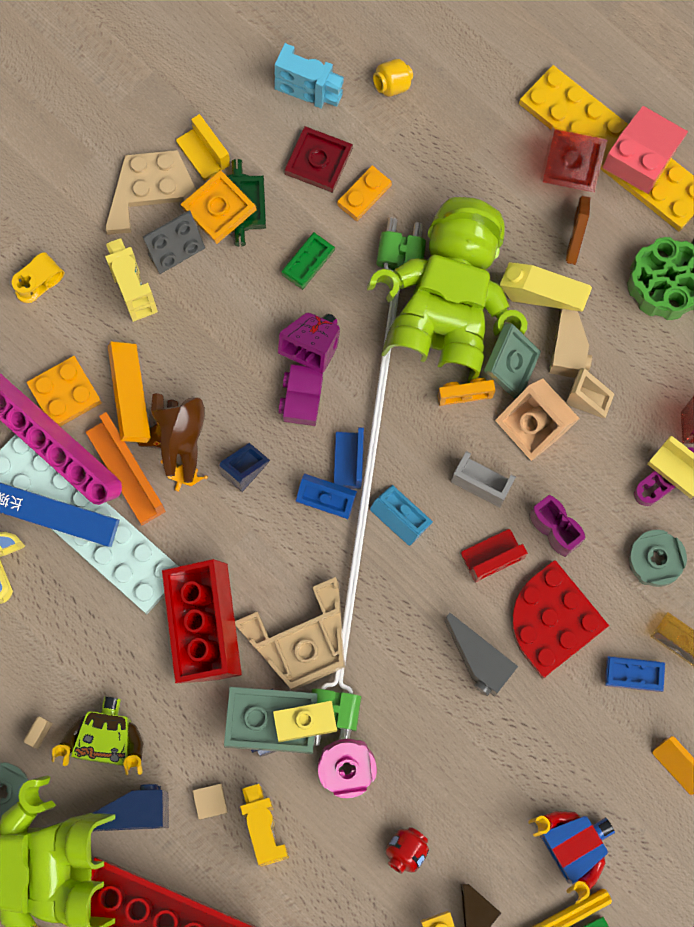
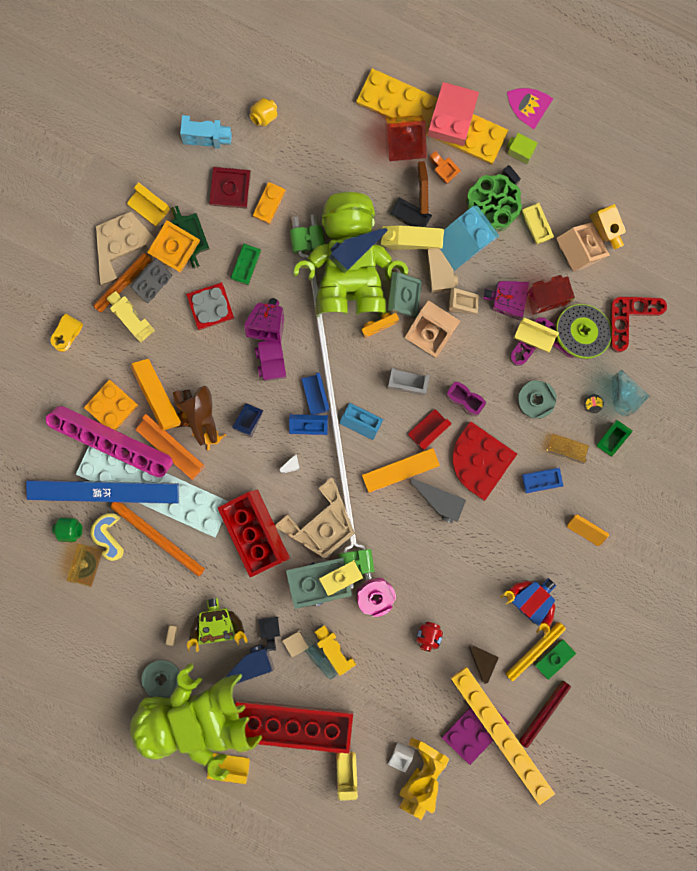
camera: 15 degrees left, 10 degrees up
(65, 590) = (158, 538): none -> orange axle
(133, 236) = (123, 281): none -> orange axle
(179, 769) = (269, 629): none -> black plate
(239, 839) = (321, 661): none -> clear light blue axle
(242, 301) = (210, 306): none -> light grey piece
(283, 545) = (291, 465): none -> white slope
(436, 599) = (400, 470): none -> light orange tile
(461, 271) = (352, 249): none -> dark blue slope
(546, 256) = (410, 214): none -> black tile
(614, 216) = (445, 169): none -> orange plate
(620, 309) = (467, 237): none -> medium azure slope
(655, 408) = (508, 298): none -> magenta torso

